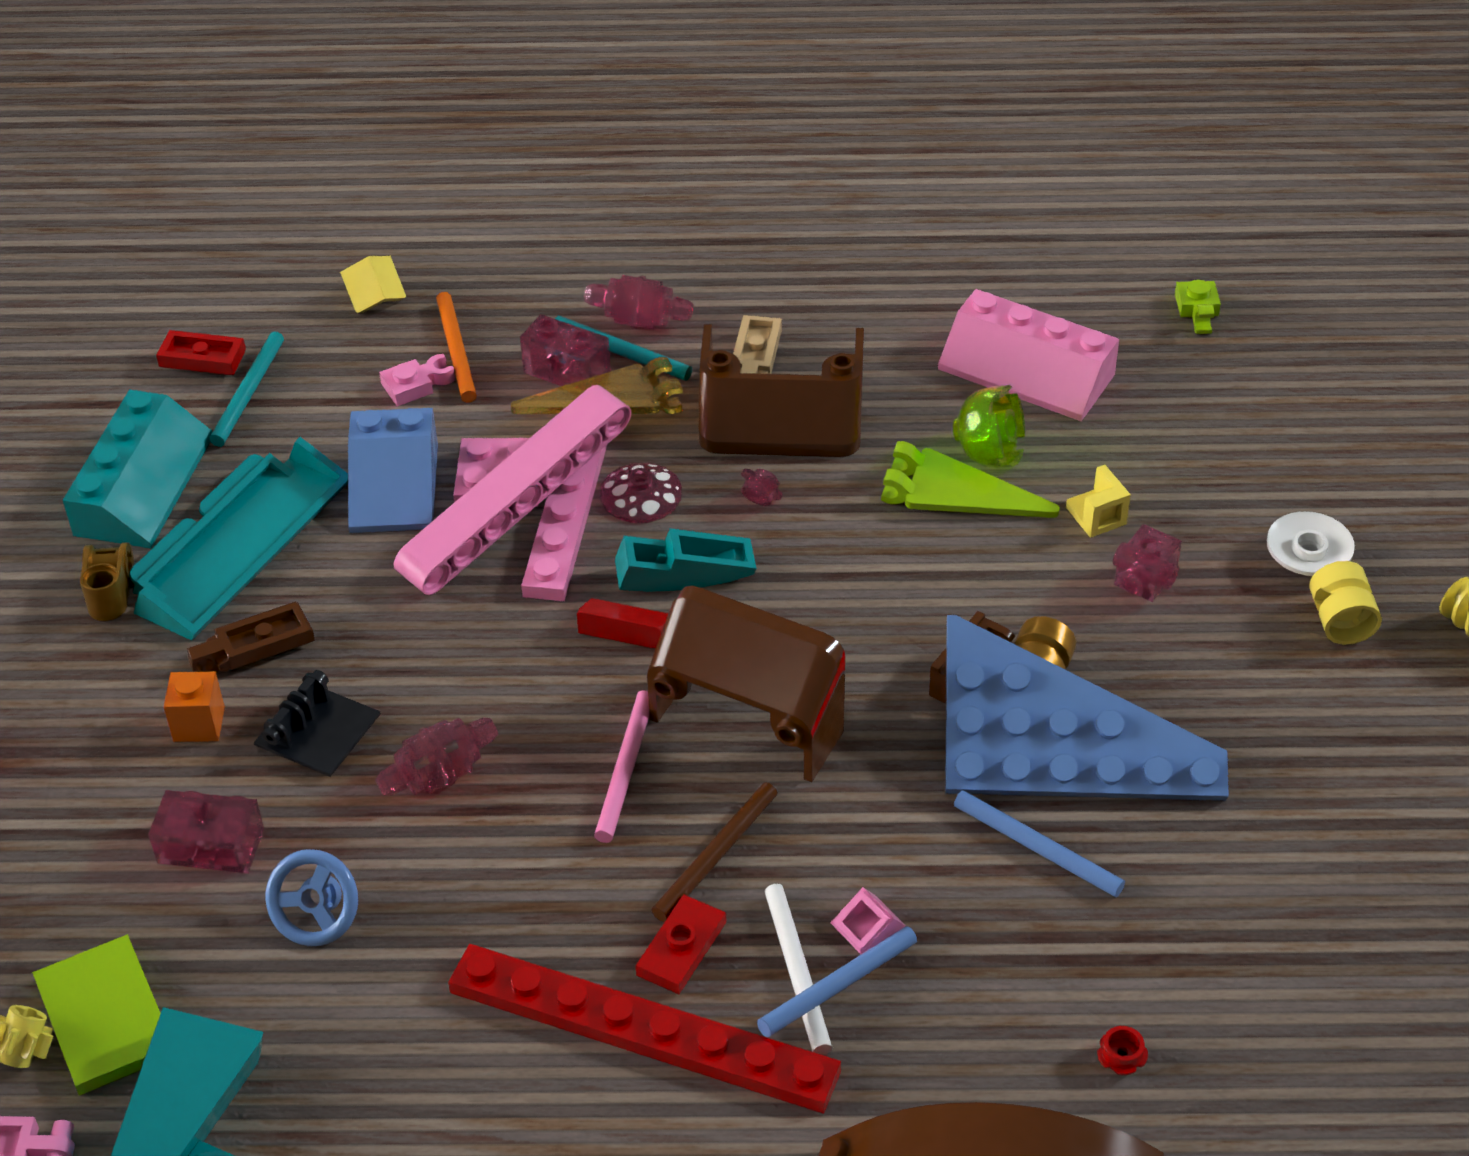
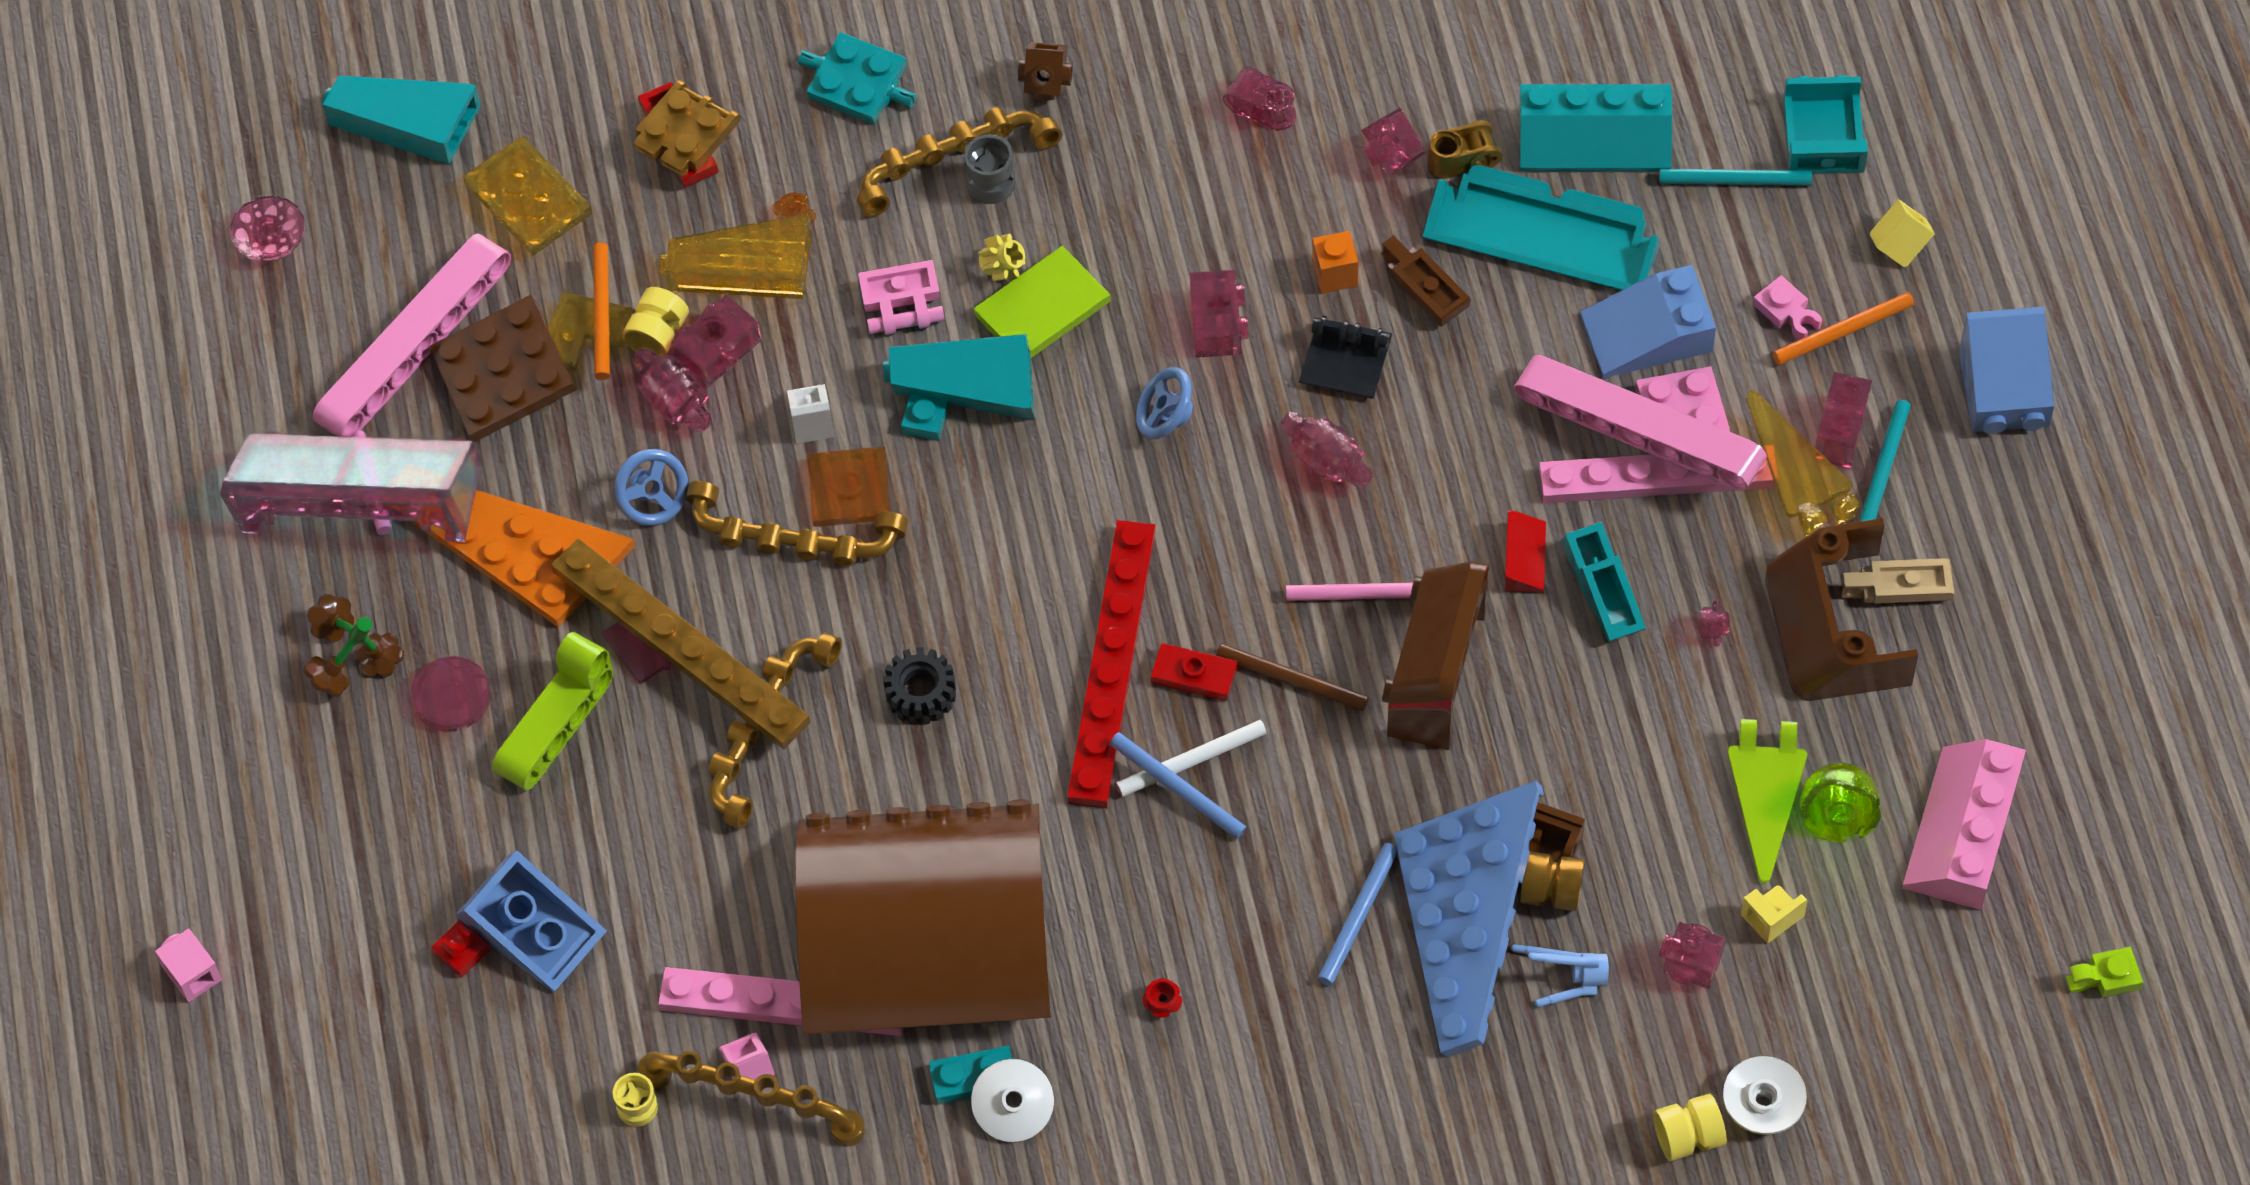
camera: 80 degrees right, 15 degrees up
(67, 626) = (1392, 142): none -> clear pink brick
(201, 352) = (1765, 124): red plate -> none
(228, 310) = (1824, 124): none -> teal panel
(559, 238) = (2007, 370): none -> medium blue slope
(638, 302) = (1937, 463): clear pink piece -> none
(641, 492) = (1691, 544): clear pink dish -> none
(866, 921) = (1248, 801): bright pink slope -> none
(1146, 657) = (1587, 969): none -> light blue plant

